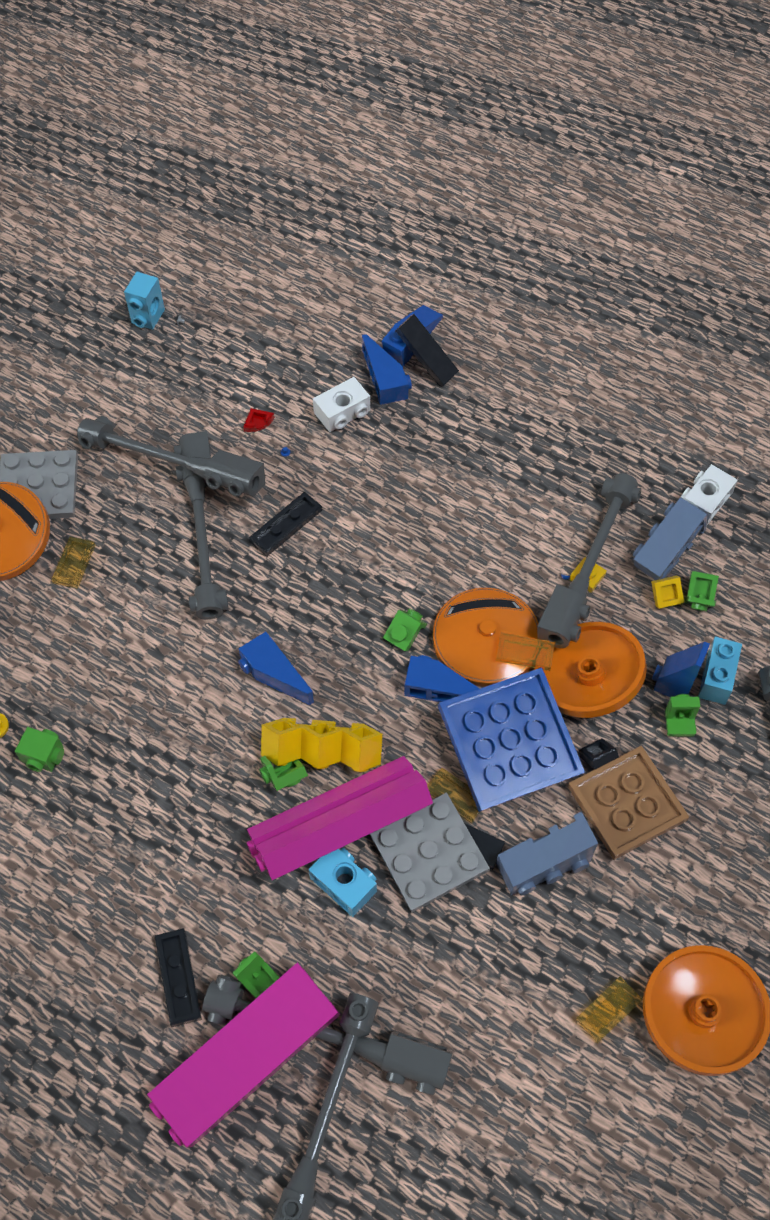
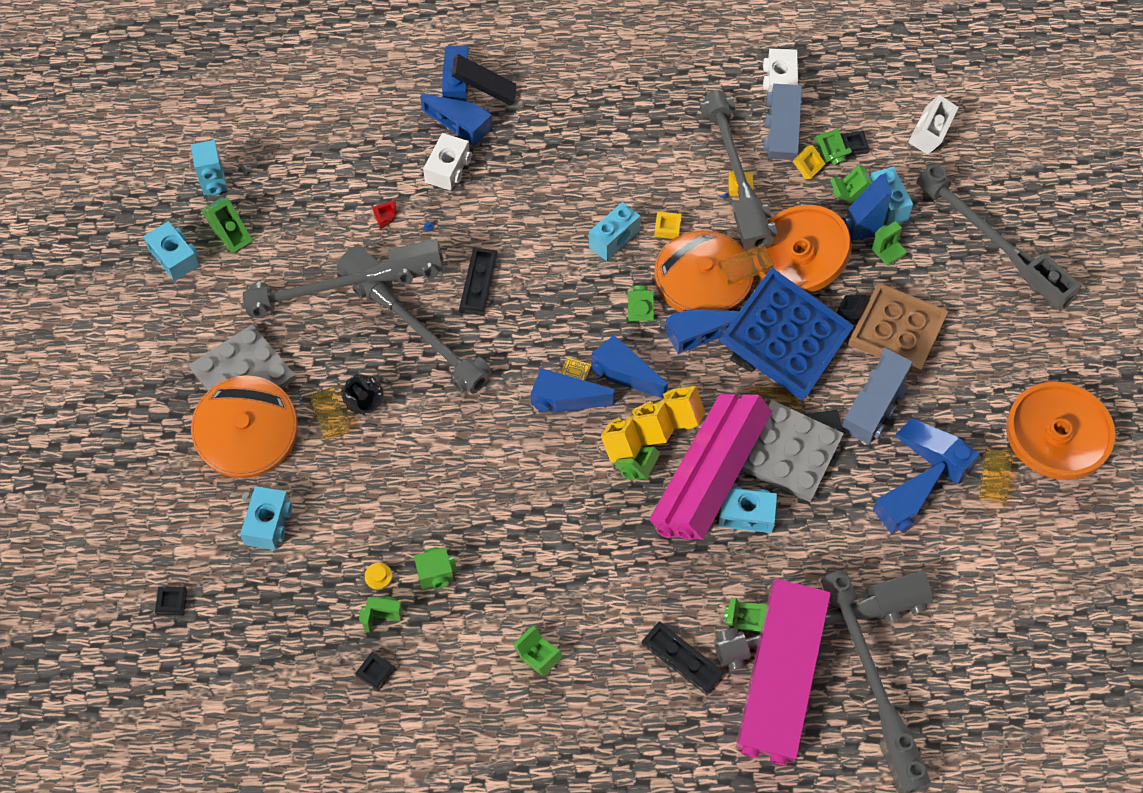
camera: 35 degrees left, 0 degrees up
(60, 881) = (537, 651): none -> bright green bracket
(65, 353) = (162, 243): none -> medium azure brick
(106, 561) = (362, 394): none -> black piece
(124, 356) = (227, 224): none -> bright green slope
(300, 654) = (576, 369): none -> yellow tile
(341, 676) = (625, 368): none -> blue slope
(433, 549) = (614, 231): none -> medium azure brick
(488, 572) = (667, 225): none -> yellow plate
(495, 975) = (902, 505): none -> blue slope
(571, 945) = (939, 447): none -> blue slope
(684, 637) = (852, 185): none -> bright green bracket
(729, 600) = (857, 143): none -> black tile

